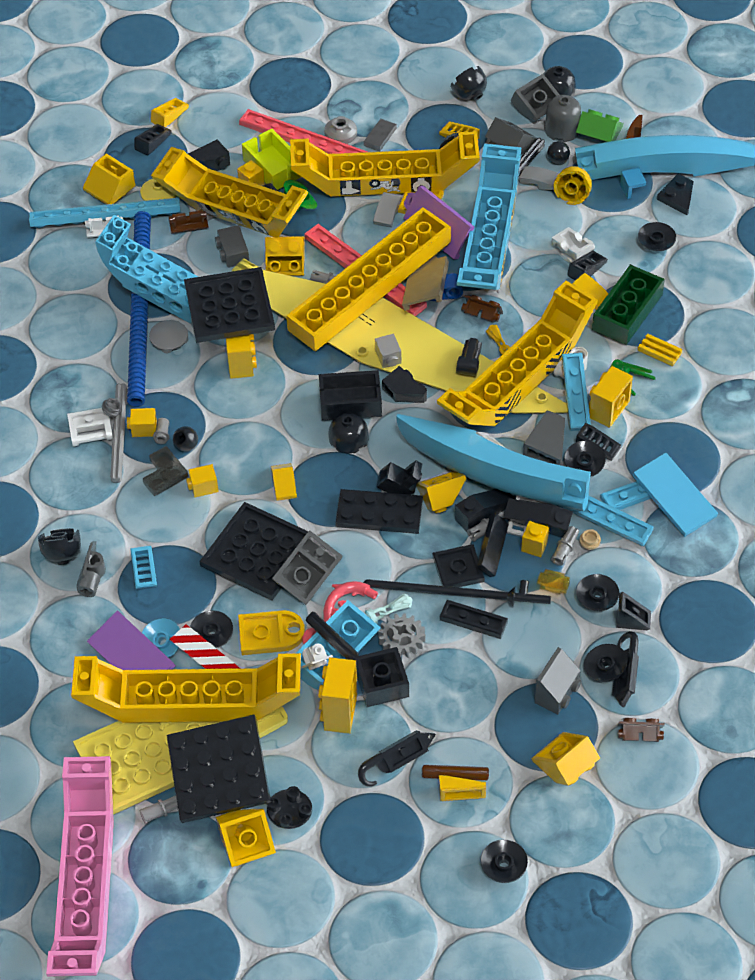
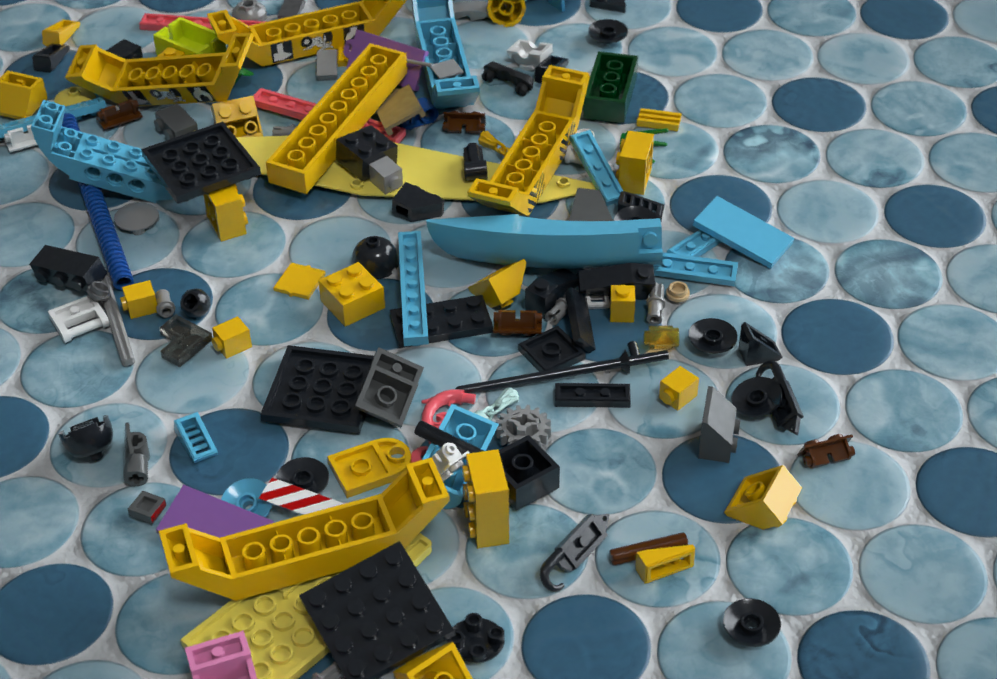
camera: 20 degrees left, 10 degrees down
(86, 619) = (147, 507): none -> dark grey plate
(94, 377) = (67, 268): none -> black brick
(279, 437) = (299, 280): none -> yellow piece
(284, 481) = (323, 318): yellow slope -> none
(314, 465) = (351, 294): none -> yellow brick
(350, 393) = (361, 218): black piece -> none
(364, 475) = (412, 289): none -> medium azure plate
(378, 320) = (363, 147): none -> black brick
(399, 480) = (447, 285): black brick -> none
(447, 536) = (507, 324): none -> reddish brown hinge
(480, 249) = (442, 69): none -> light grey piece
(532, 255) = (521, 80): none -> black piece
(545, 635) = (678, 388): none -> yellow brick

